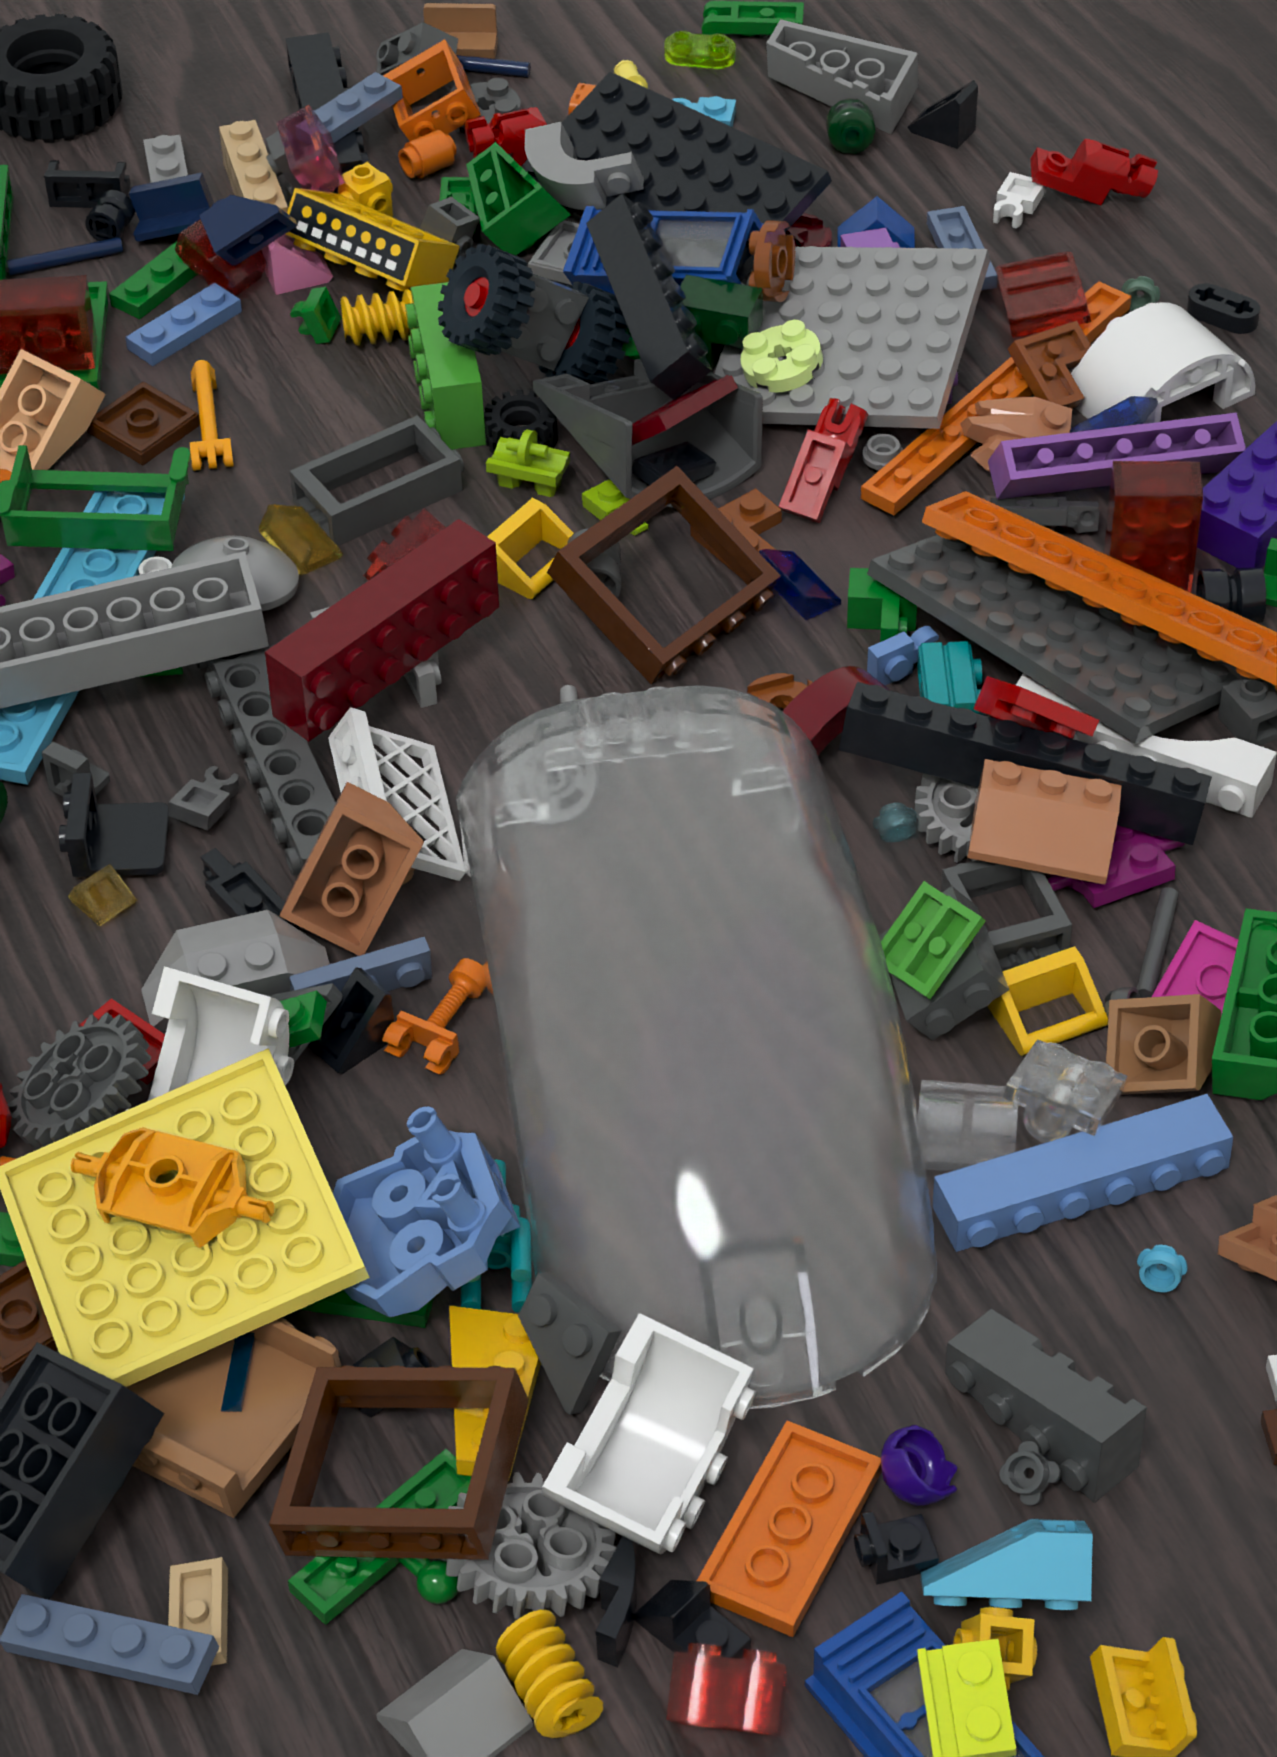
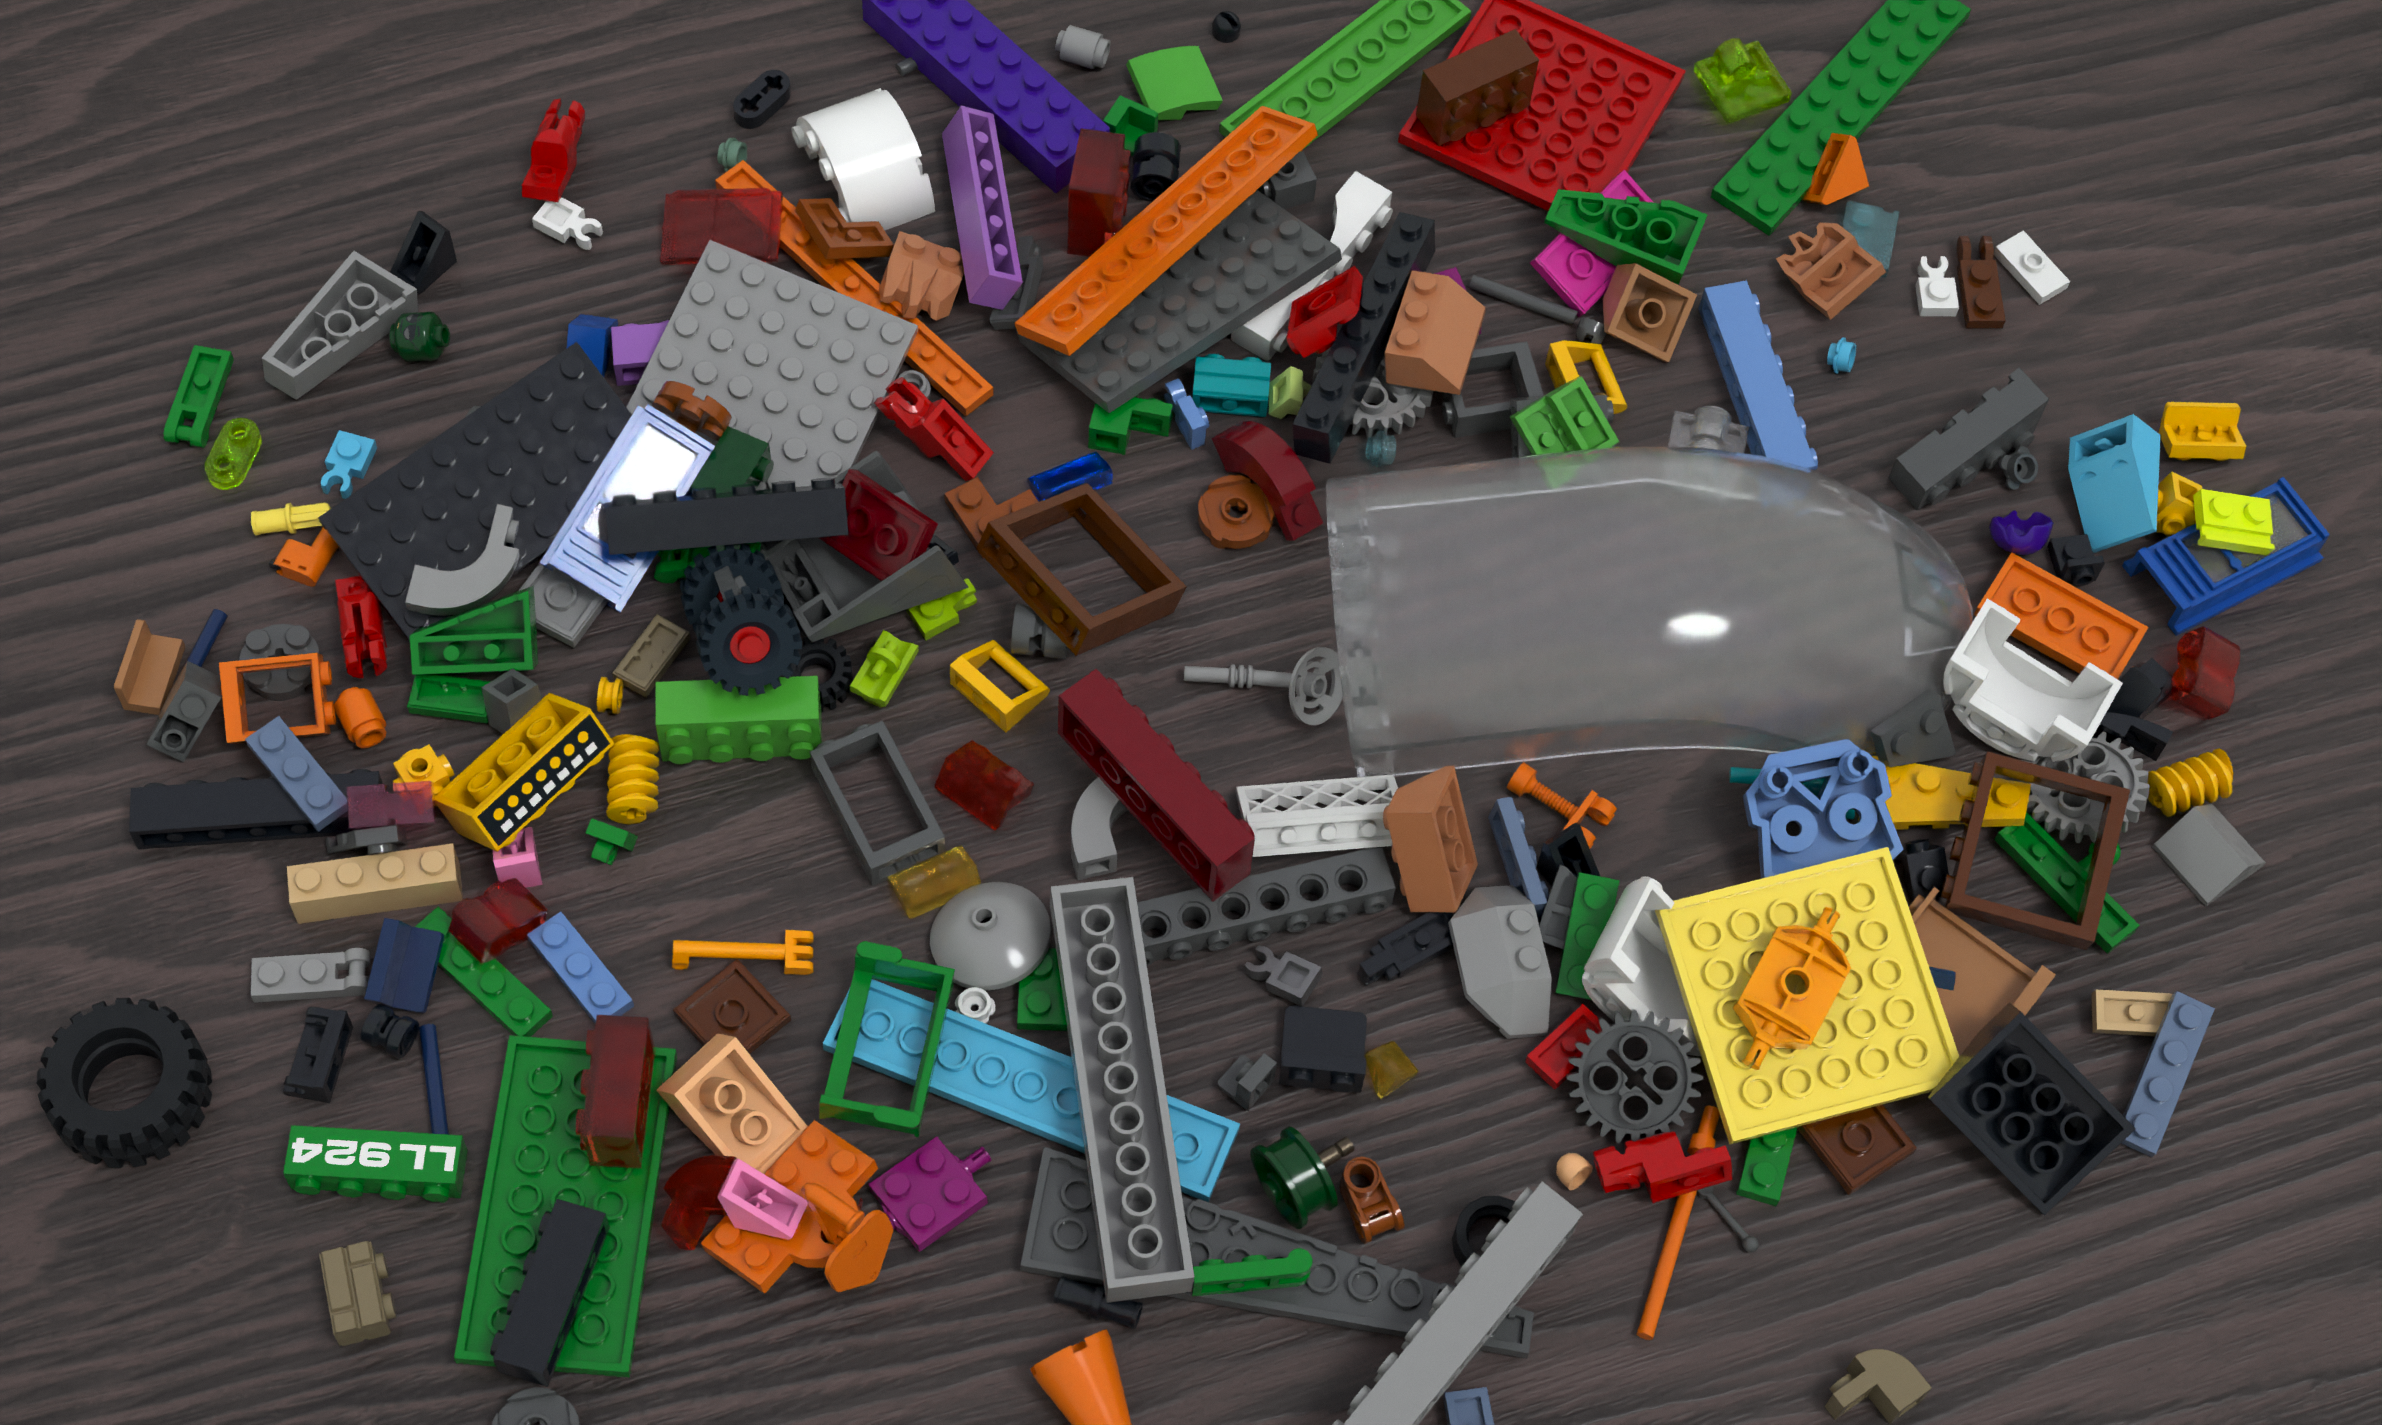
camera: 90 degrees left, 15 degrees up
(244, 226) = (512, 872): dark blue slope -> none
(764, 348) = (814, 418): yellowish green plate -> none
(955, 230) = (632, 279): sand blue plate -> none
(1063, 1091) = (1697, 375): clear plate -> none
(1125, 413) = (938, 201): clear blue slope -> none

